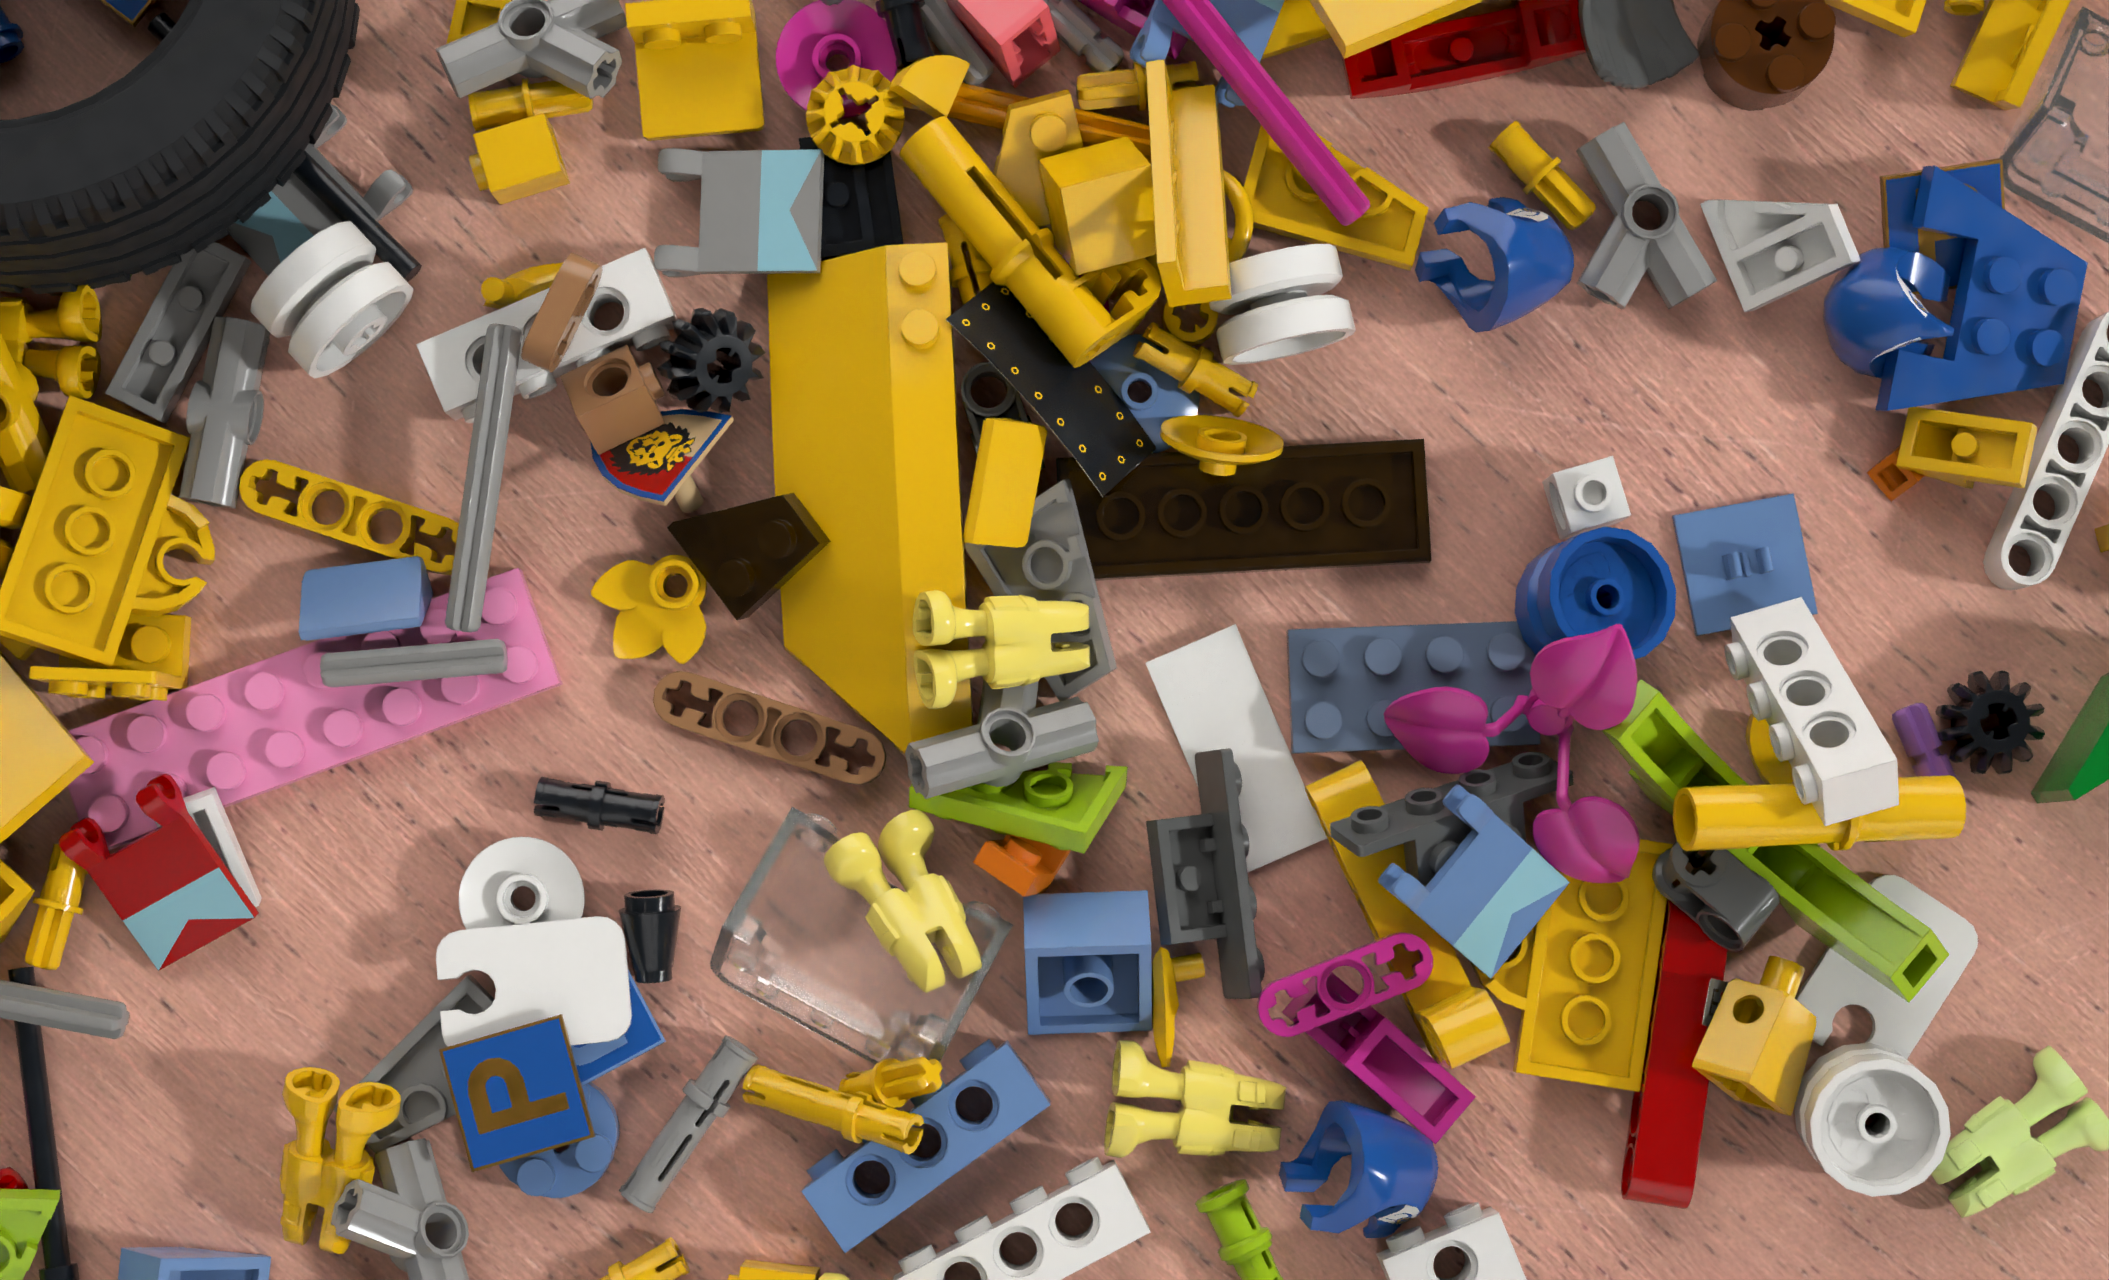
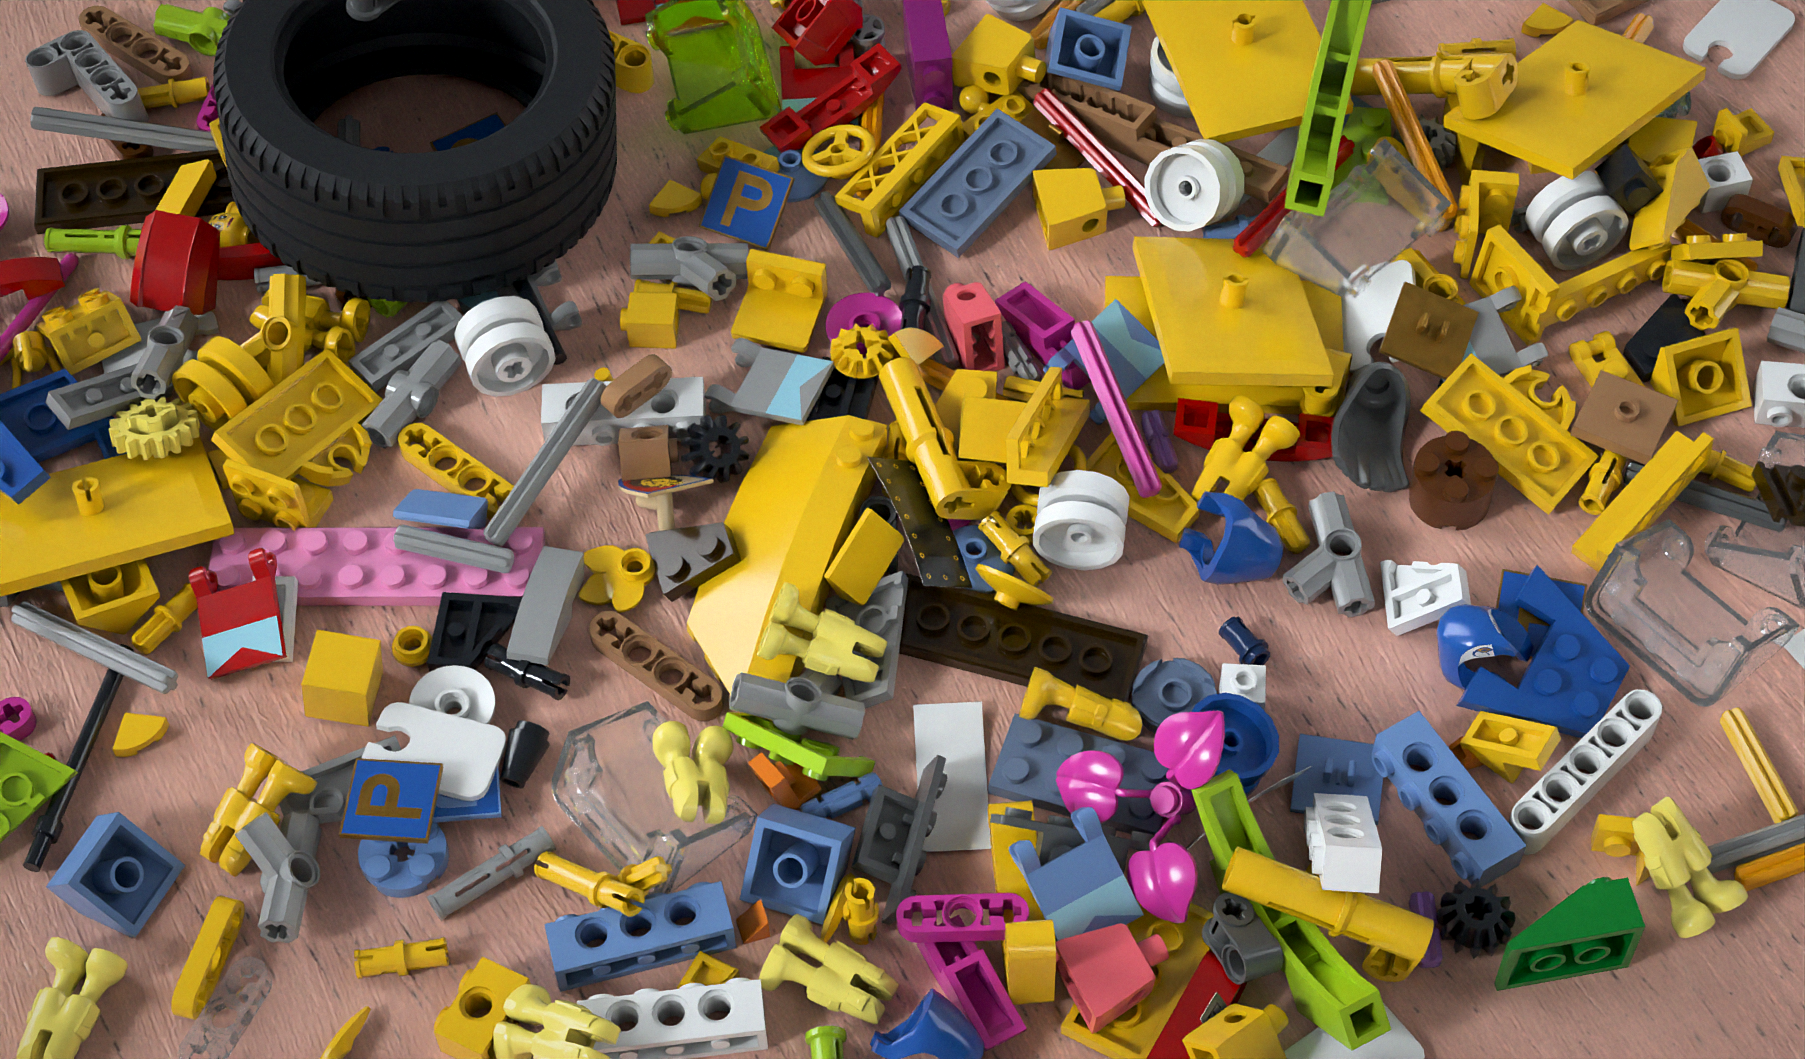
camera: 25 degrees right, 30 degrees down
(106, 1091) = (138, 732): none -> yellow tile
(354, 922) = (342, 678): none -> yellow head
(402, 821) = (410, 637): none -> yellow plate
(489, 770) = (469, 627): none -> black wing
(583, 701) = (546, 605): none -> light grey slope
(1032, 1161) = (708, 971): none -> yellow tile
(1061, 1065) = (753, 924): none -> orange piece
(1108, 842) = (843, 798): none -> medium blue axle
(1215, 1034) = (861, 911): none -> yellow pin
(1322, 97) = (1157, 437): none -> medium lavender piece
(1387, 594) = (1084, 706): none -> yellow piece
(1458, 127) = (1239, 468): none -> yellow piece
(1489, 520) = (1169, 689): none -> sand blue tile
(1559, 405) = (1244, 642): none -> dark blue pin
(1562, 993) = (1108, 971): none -> coral torso
(1595, 756) = (1284, 781): none -> white sticker
(1988, 605) = (1417, 743): none -> medium blue brick

